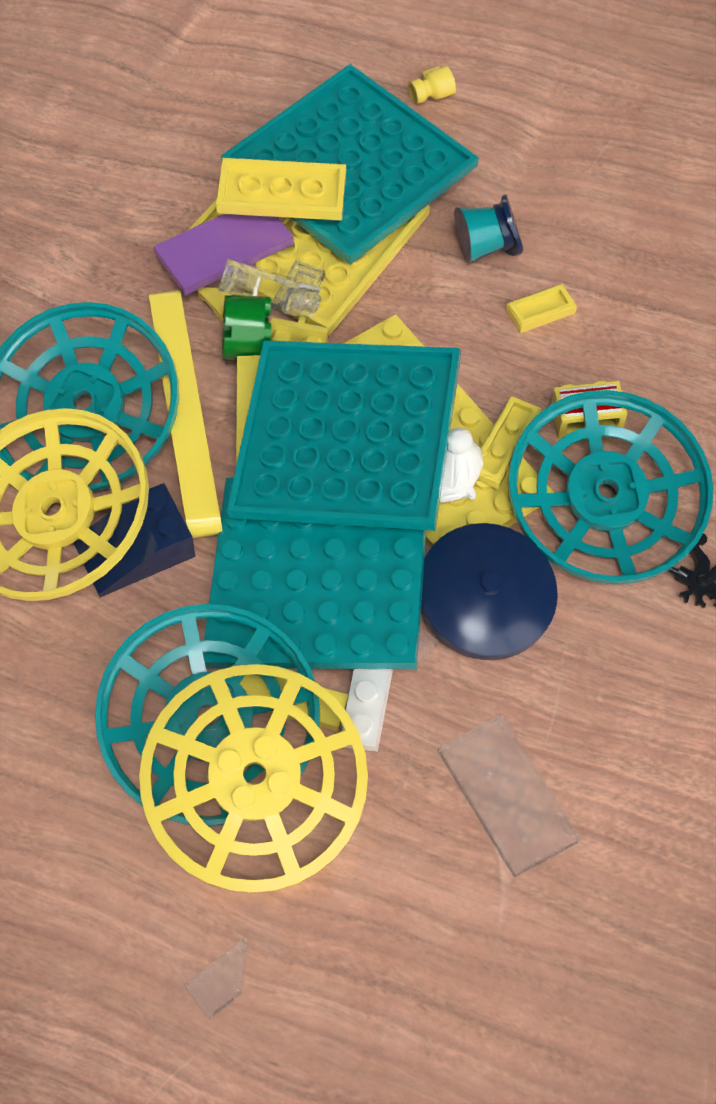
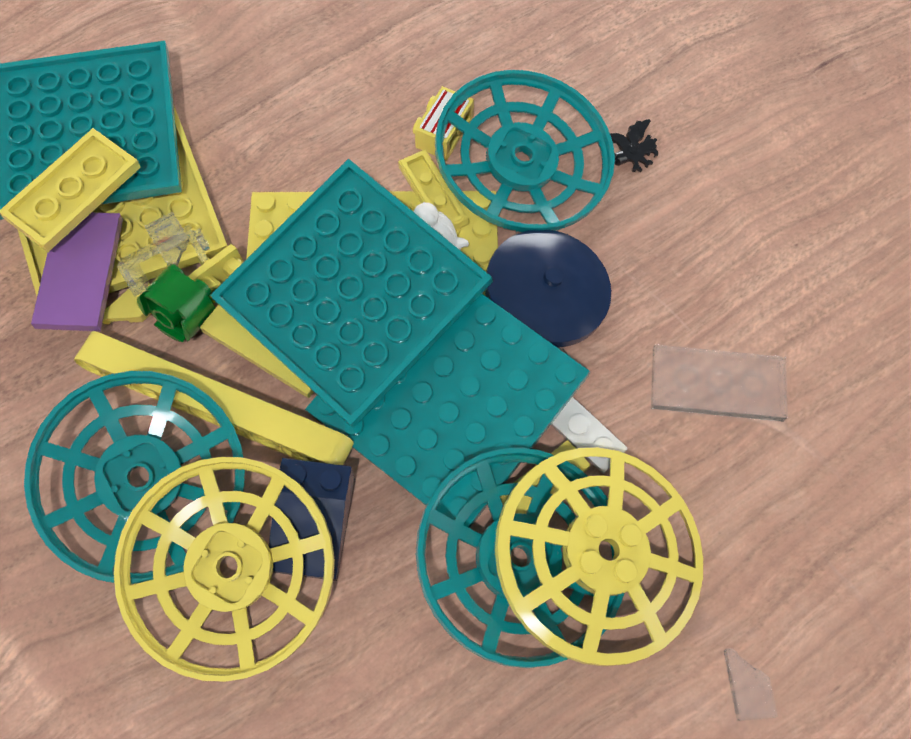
camera: 55 degrees left, 5 degrees up
(435, 84) = (57, 28): light yellow piece -> none
(487, 230) = (235, 80): hat -> none
(541, 308) = (327, 96): light yellow tile -> none

